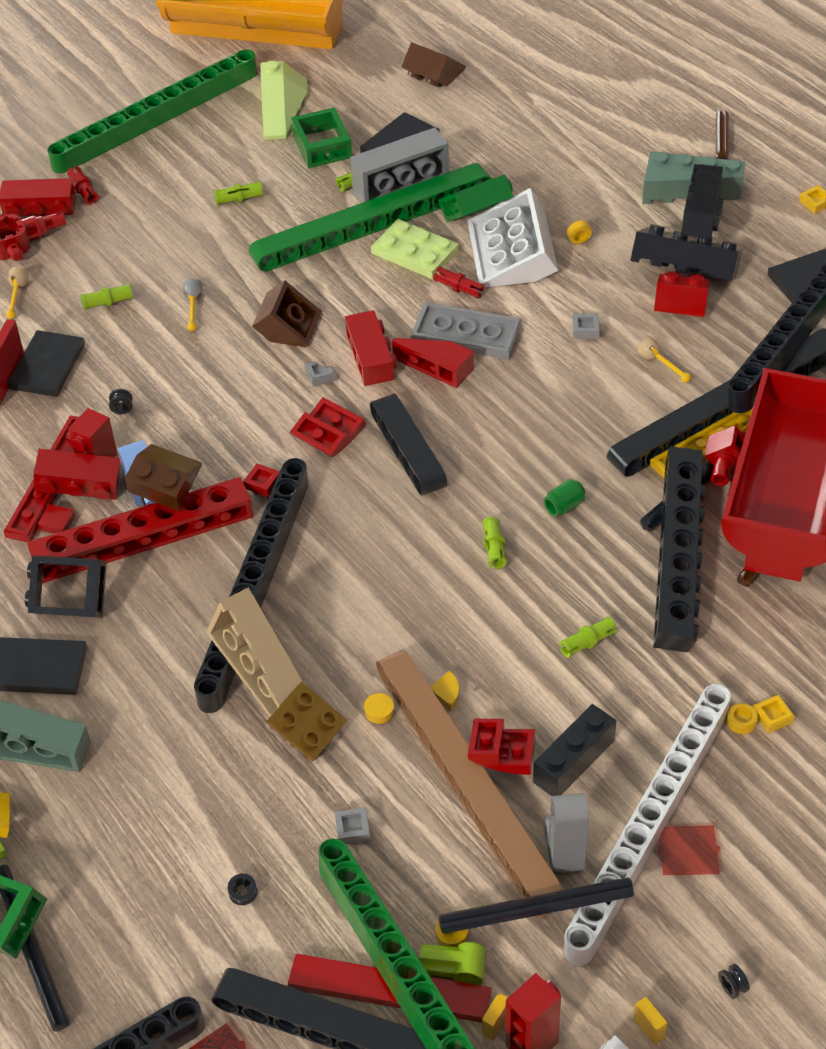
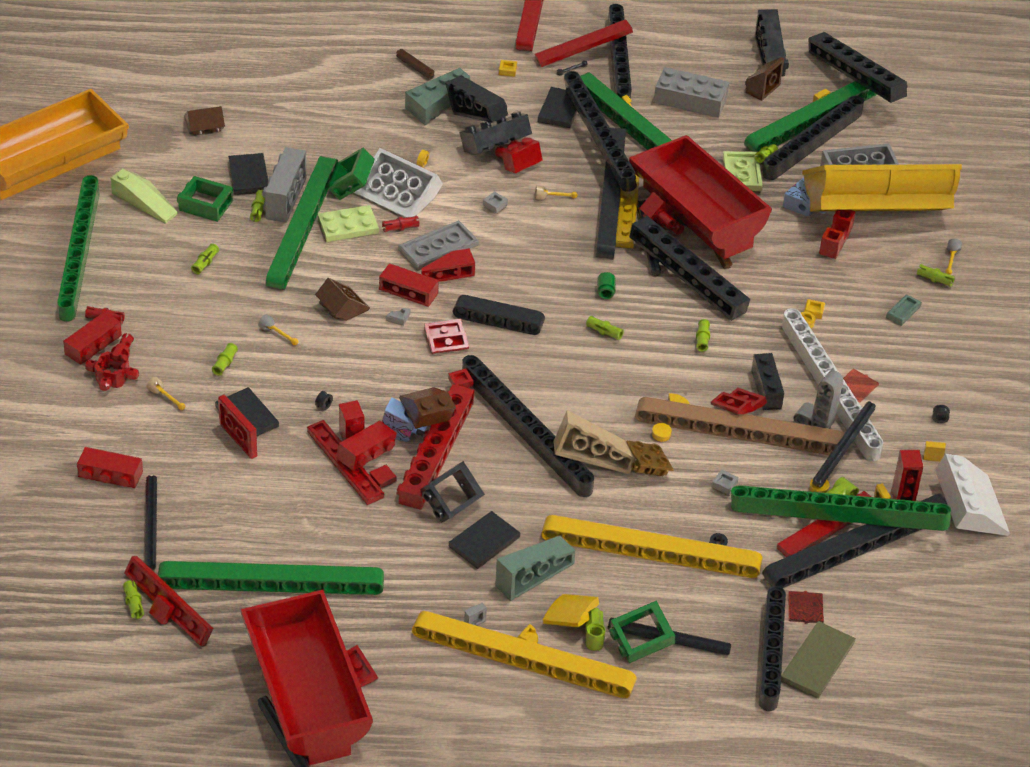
camera: 55 degrees left, 5 degrees down
(170, 834) = (653, 546): none -> yellow beam

